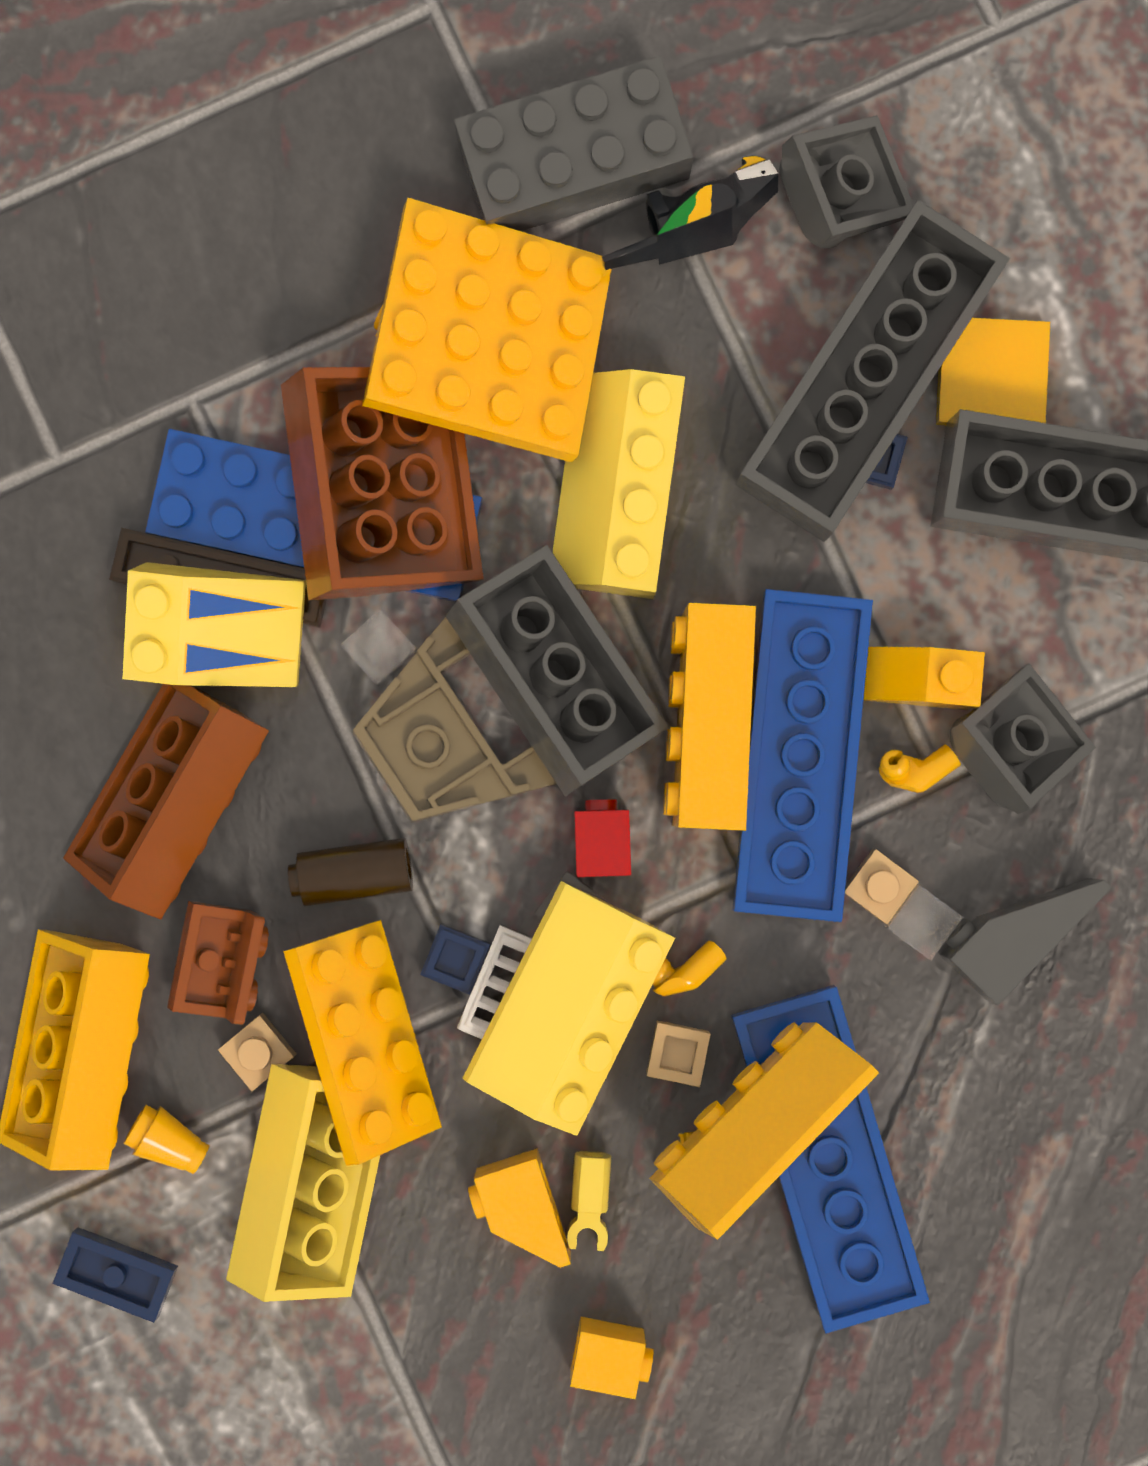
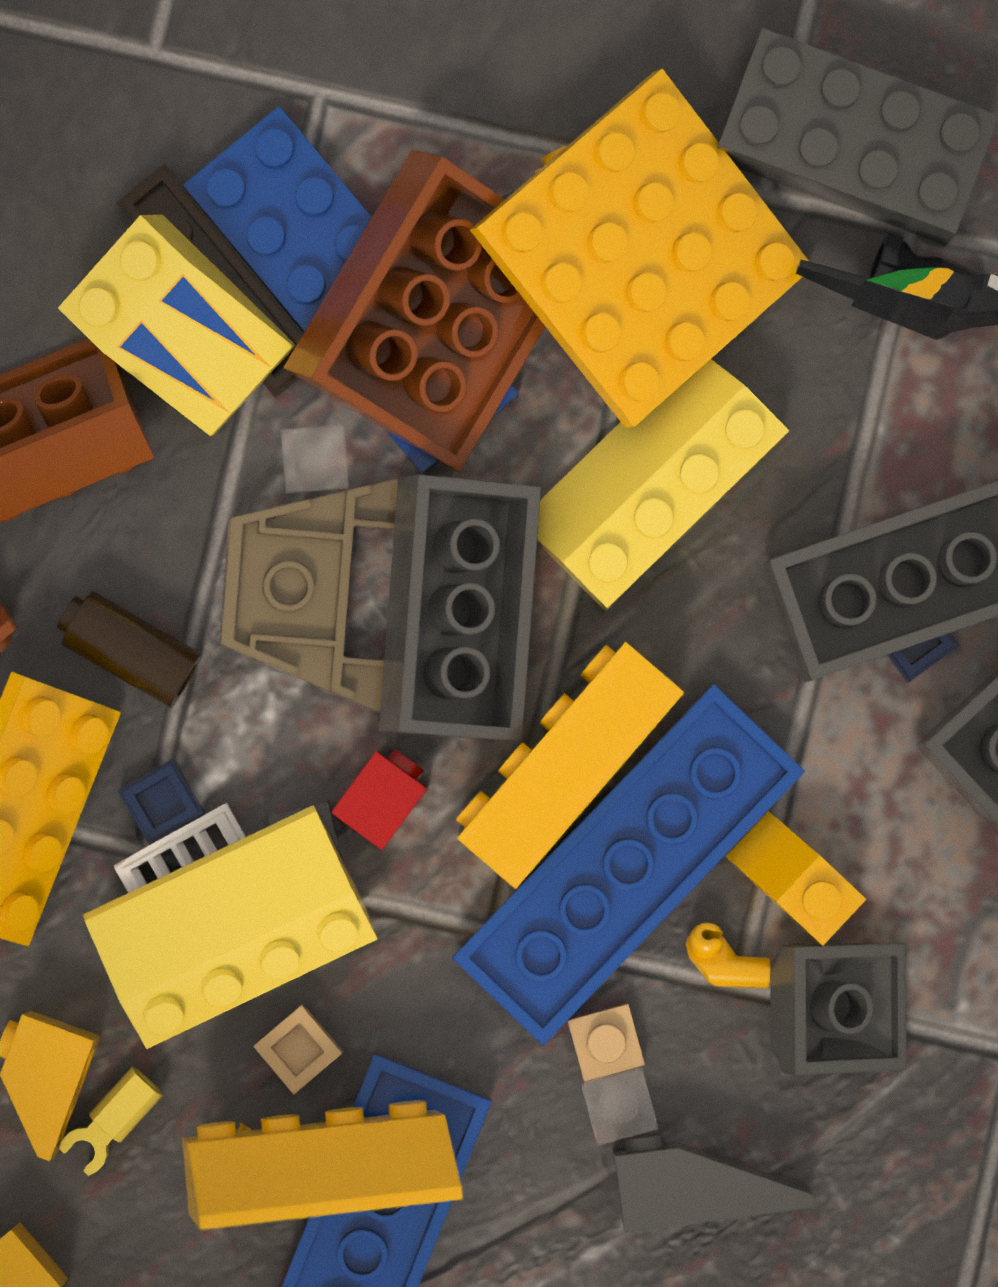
camera: 40 degrees right, 0 degrees up
(691, 973) = (367, 985): yellow arm -> none

